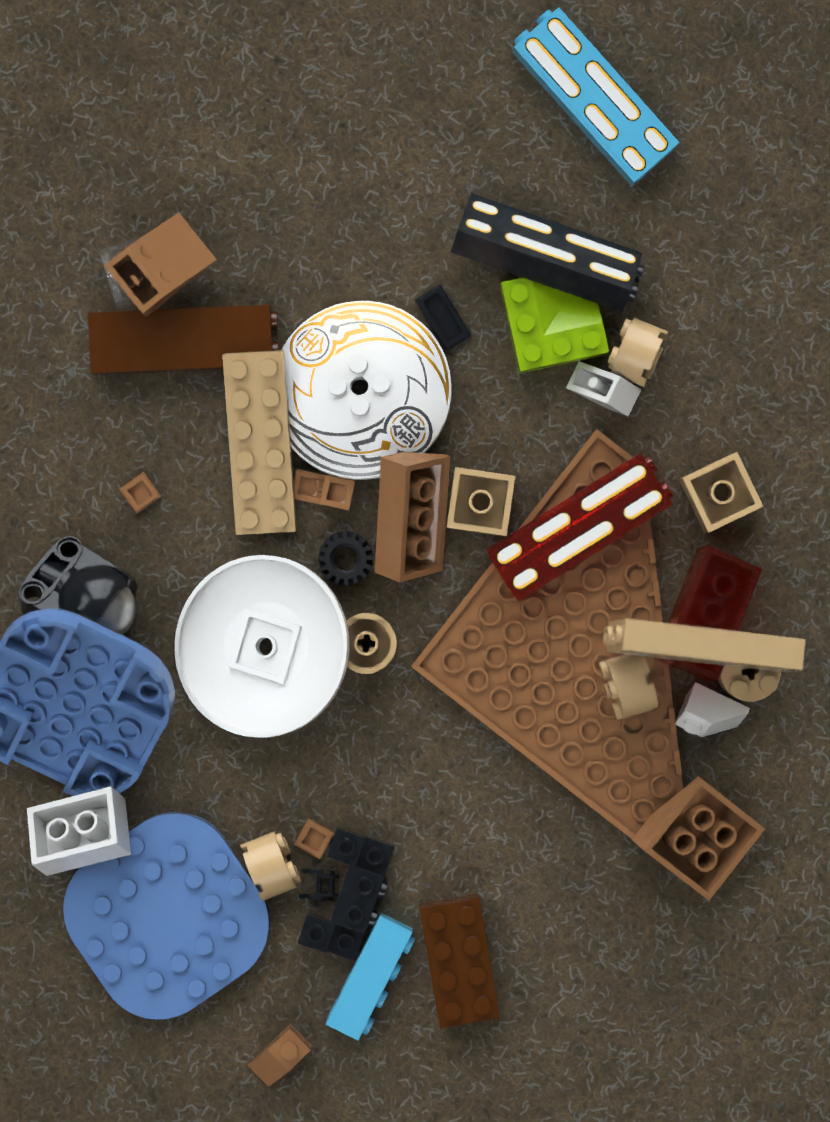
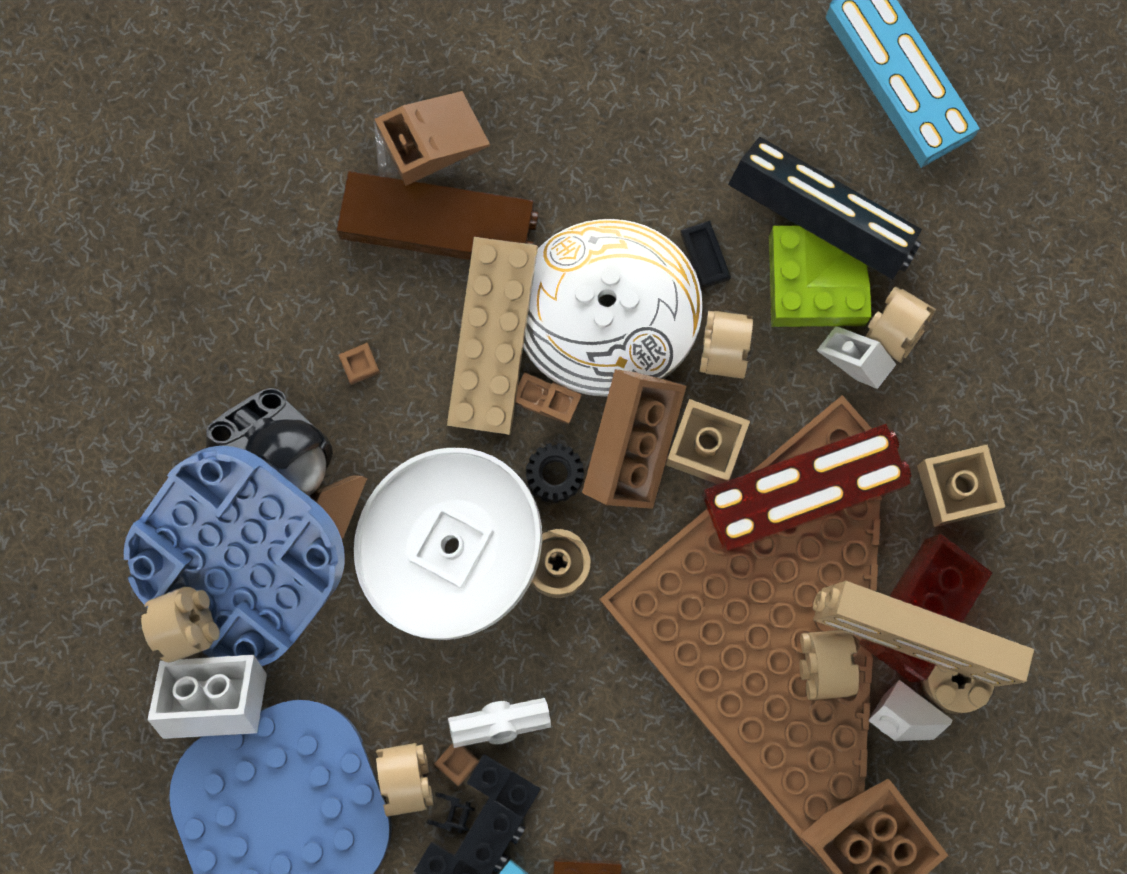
camera: 10 degrees right, 10 degrees down
(38, 773) = (179, 624): none -> tan brick
(153, 628) = (340, 500): none -> medium nougat slope
(344, 796) = (499, 722): none -> white piece
(481, 405) = (726, 344): none -> tan brick

